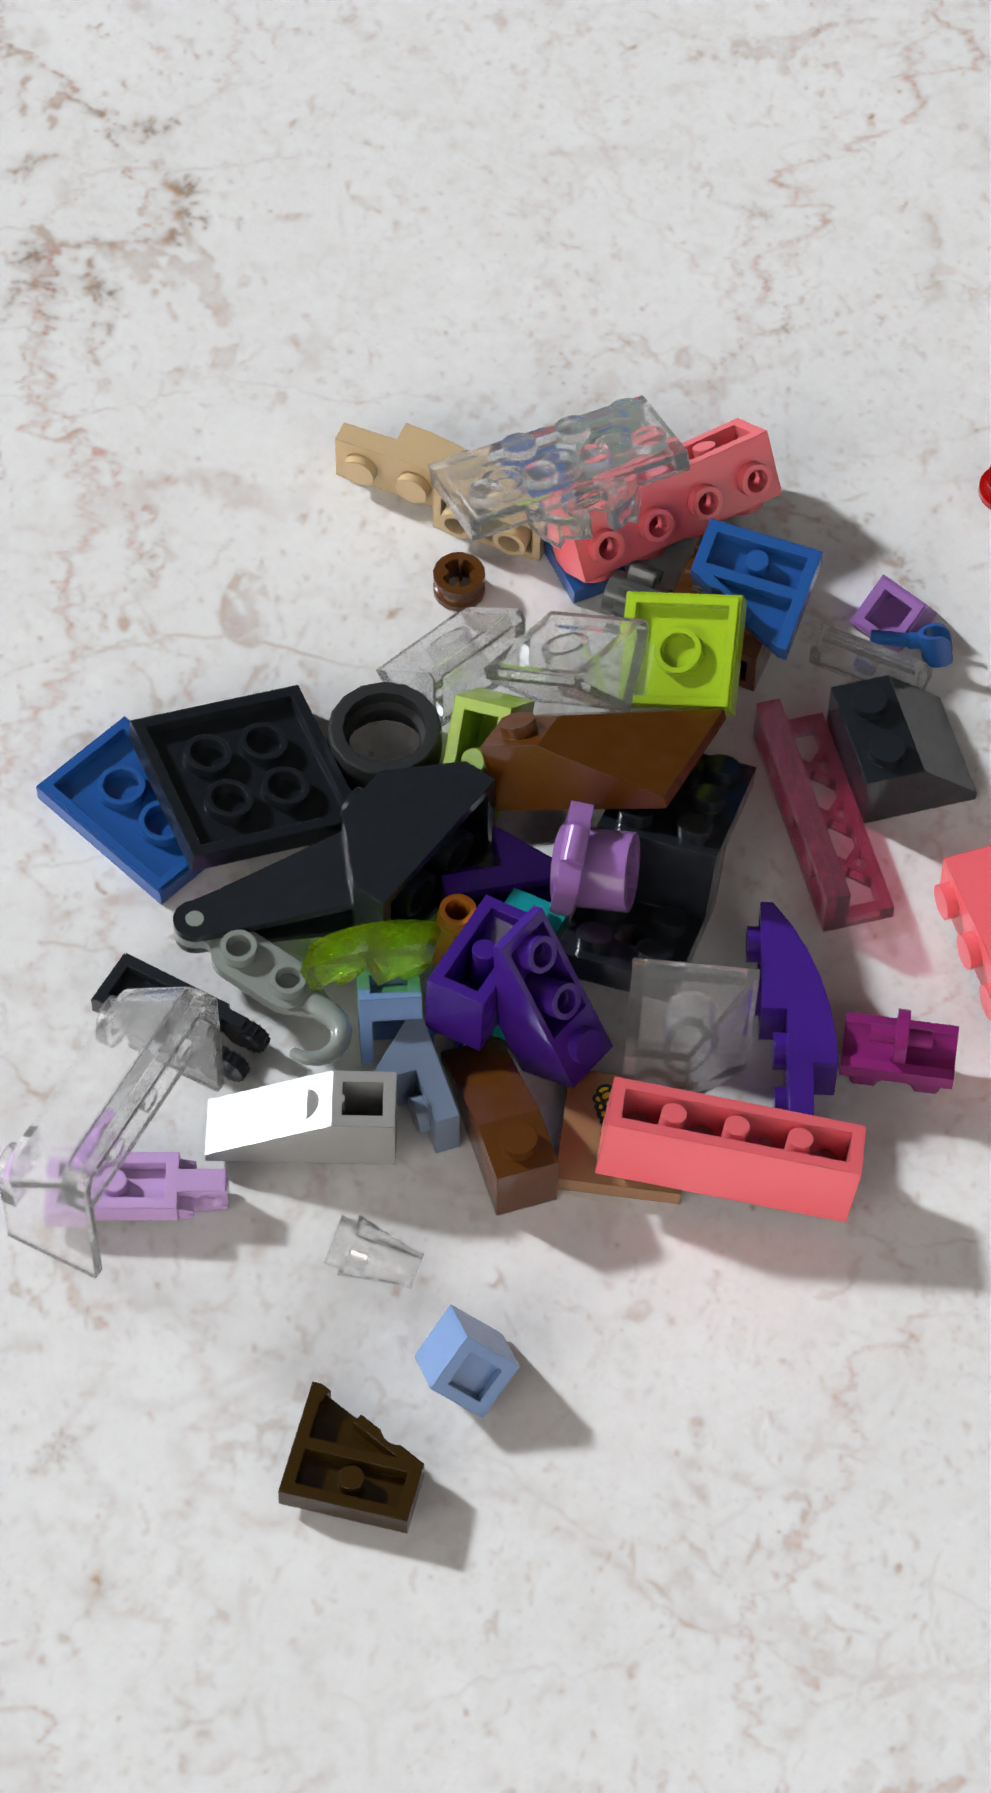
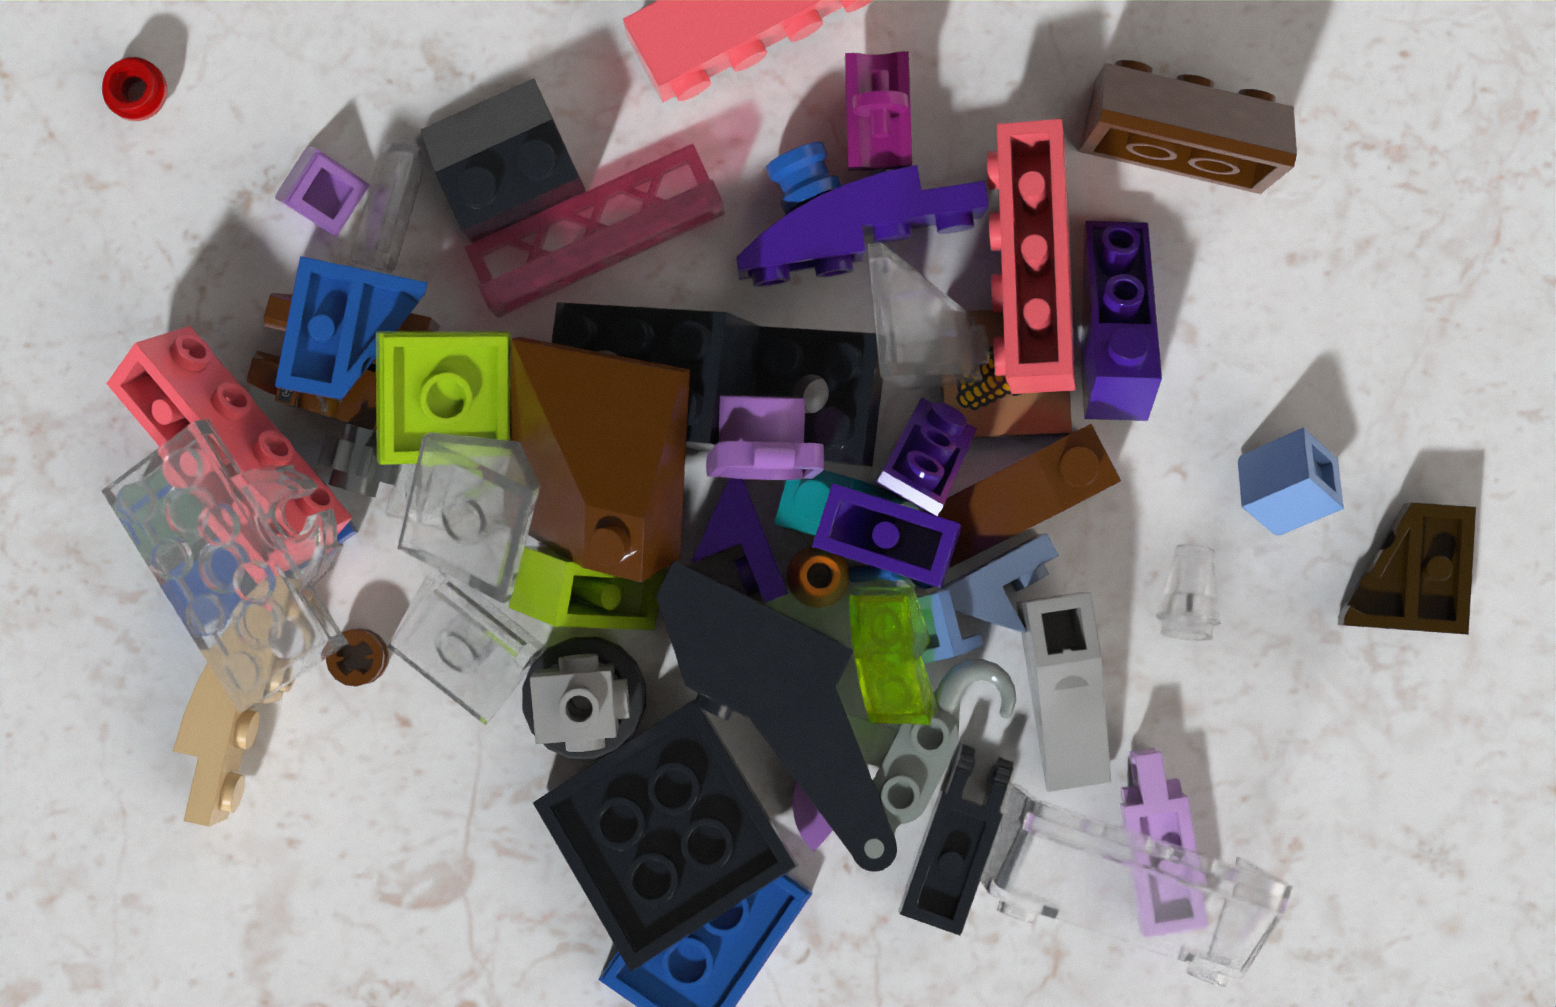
camera: 100 degrees left, 30 degrees up
(382, 705) = (557, 716): none -> light grey brick
(656, 1231) = (1118, 323): none -> dark purple slope
(845, 1314) = (1189, 127): none -> reddish brown slope
(848, 984) = (802, 175): none -> blue wheel
(932, 640) = (357, 144): blue hand -> none

